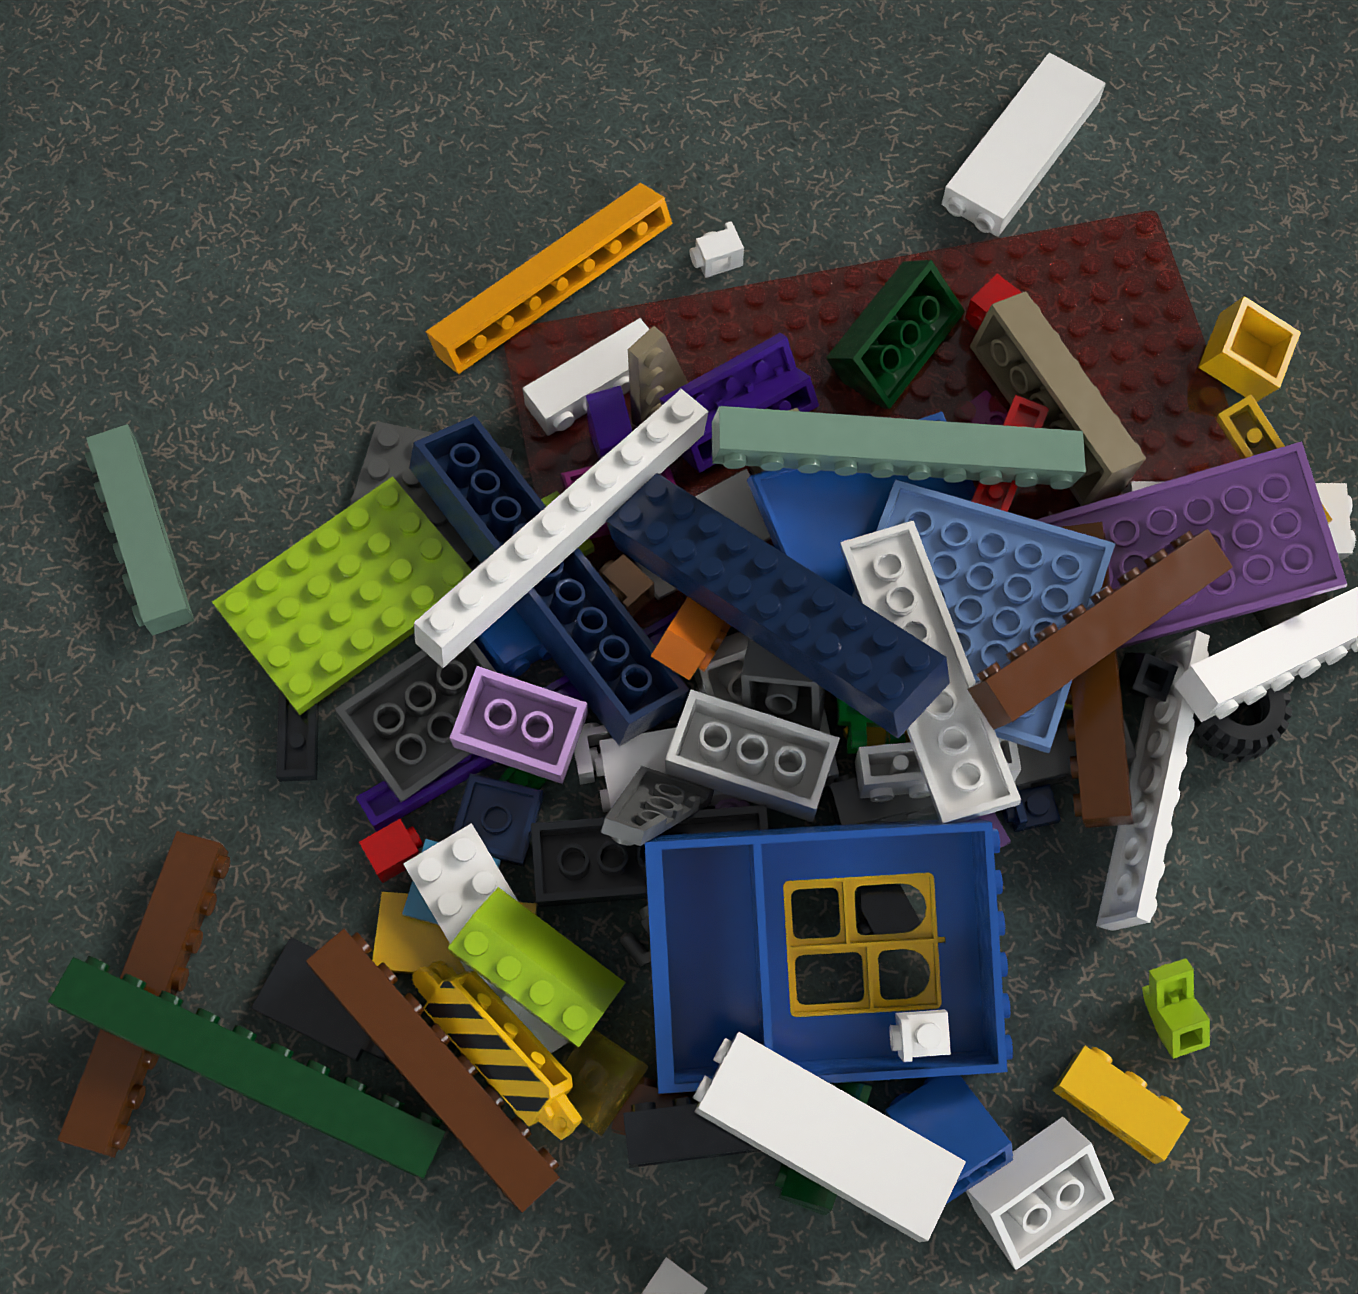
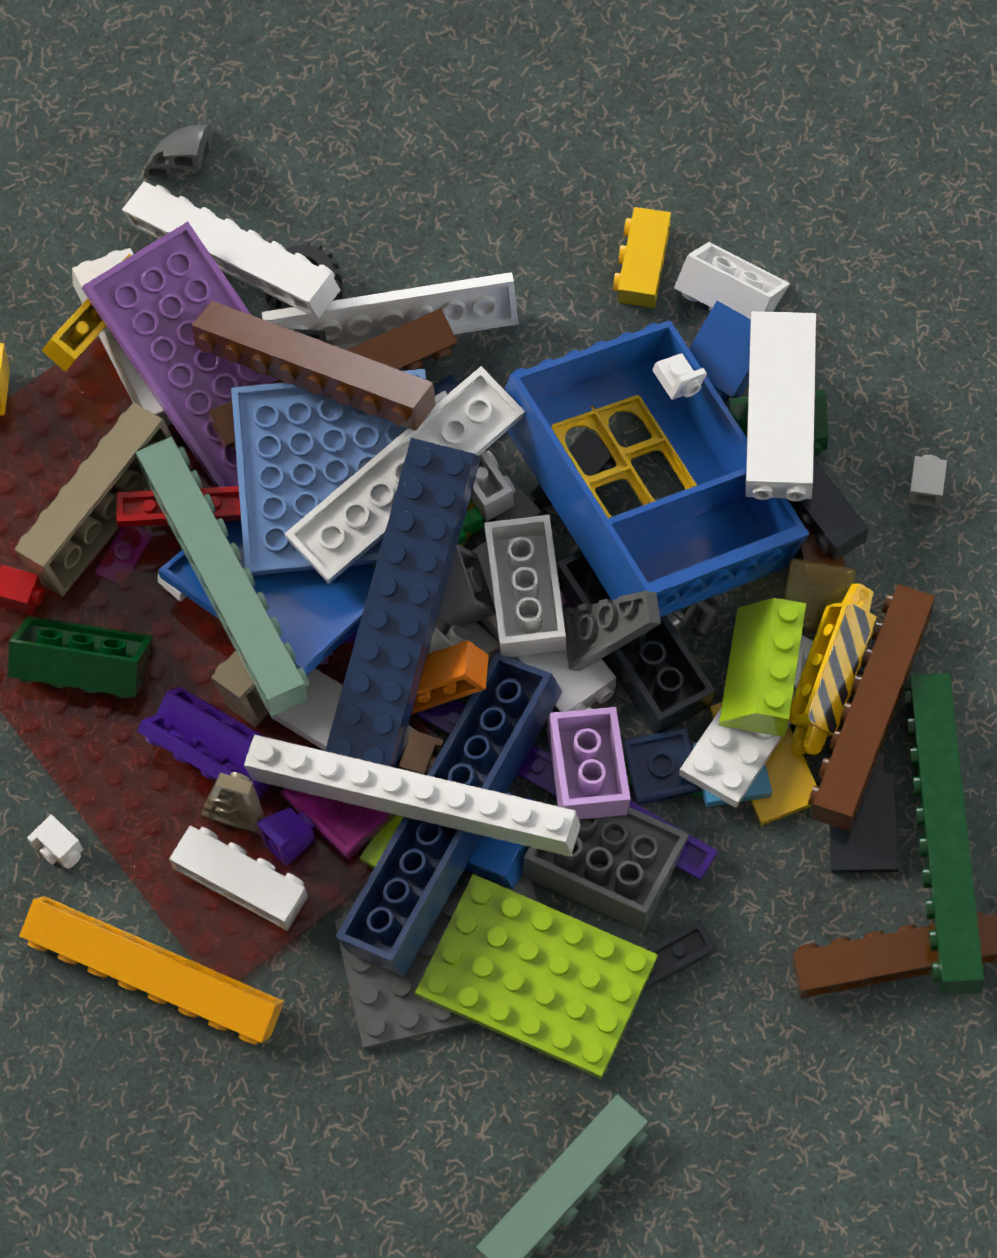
camera: 110 degrees left, 0 degrees up
(391, 848) = (726, 829): red brick -> none
(1174, 1010) = (559, 245): lime brick -> none

